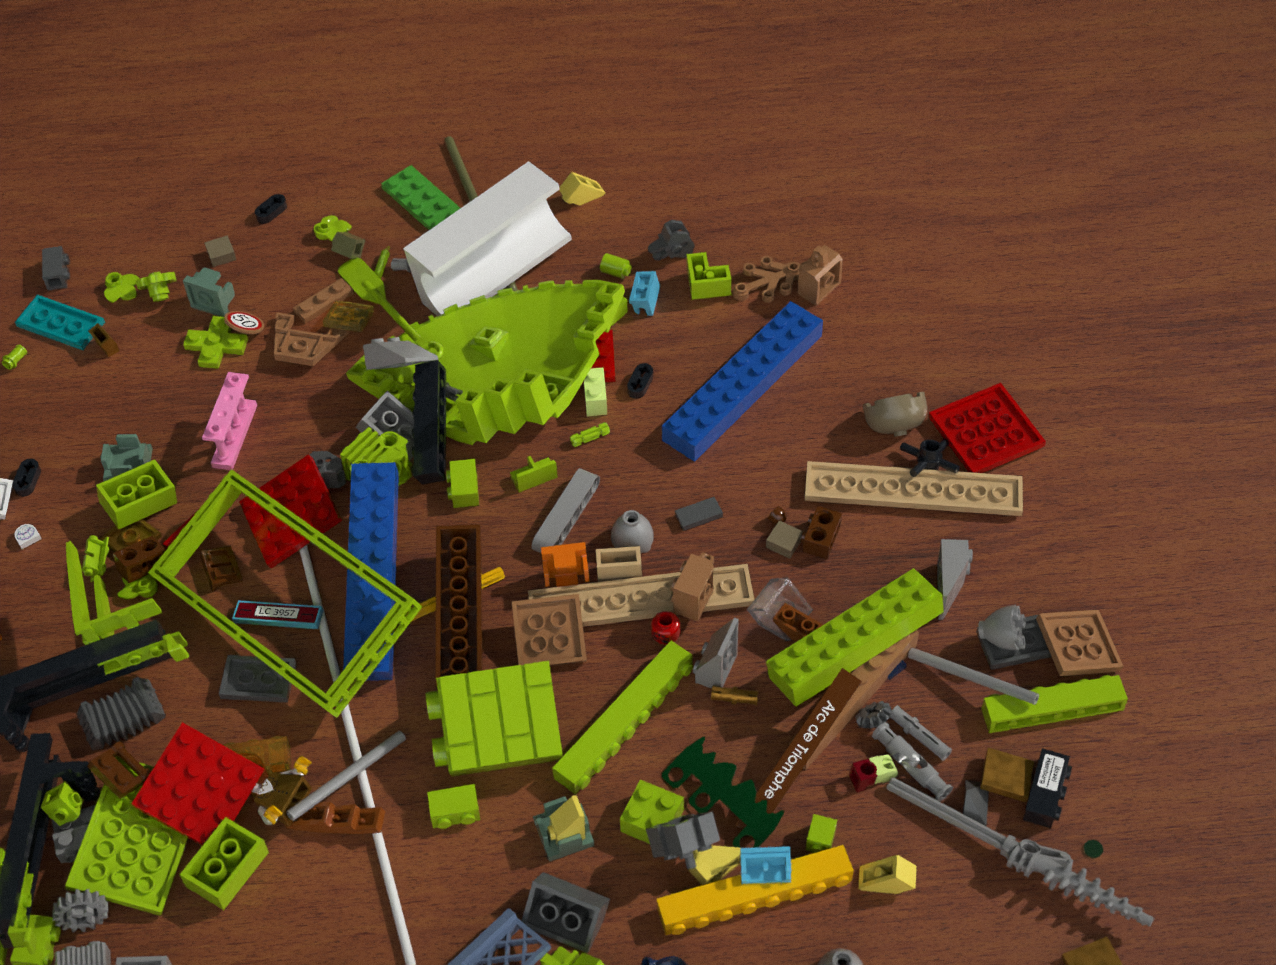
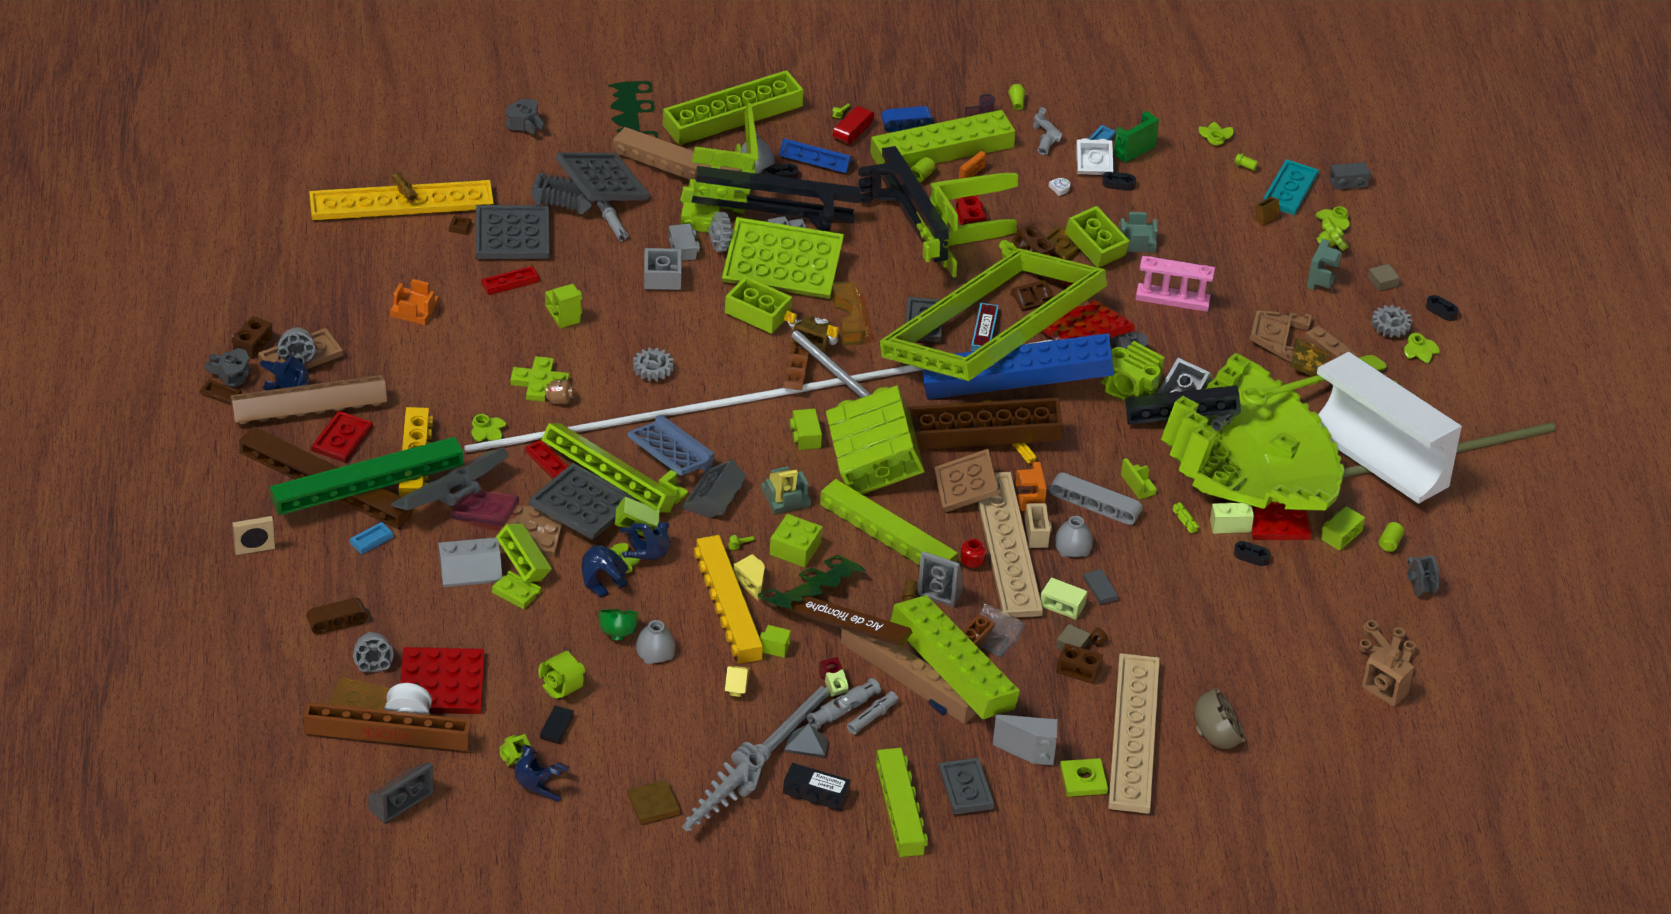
camera: 85 degrees right, 10 degrees down
(59, 628) = (970, 210): none -> red brick
(62, 804) = (804, 213): lime brick -> none
(98, 550) = (1044, 222): lime hinge -> none
(114, 774) = (824, 230): reddish brown plate -> none
(120, 714) = (890, 247): dark grey piece -> none
(197, 785) = (822, 282): red plate -> none
(215, 343) = (1275, 281): lime plate -> none
(244, 322) = (1295, 293): piece -> none
(292, 247) = (1391, 321): none -> light grey gear
(348, 244) = (1395, 354): olive brick -> none
(394, 354) = (1244, 369): light grey slope -> none
(419, 197) = (1474, 404): bright green plate -> none
(463, 483) = (1123, 434): lime brick -> none
(580, 189) = (1491, 515): light yellow slope -> none
(645, 292) = (1358, 556): medium azure hinge -> none
(652, 887) = (735, 542): none -> lime hand
(683, 836) = (765, 540): dark grey brick -> none
(693, 586) = (1007, 561): medium nougat hinge -> none
(706, 280) = (1378, 594): lime brick -> none
(725, 542) = (1063, 598): none -> yellowish green brick
(741, 381) = (1255, 620): blue brick -> none
(765, 865) = (741, 592): medium azure hinge -> none
(873, 715) = (888, 681): dark grey gear -> none
(929, 456) = (1168, 742): black bar -> none
(974, 676) = (928, 741): light grey piece -> none
(987, 429) = (1208, 792): red plate -> none
(991, 545) = (1079, 786): none -> lime piece
(1004, 628) = (968, 766): light grey piece -> none
(1007, 775) = (831, 758): pearl gold tile -> none
(1079, 642) = (962, 823): medium nougat plate -> none
(1093, 848) = (762, 817): clear green piece -> none

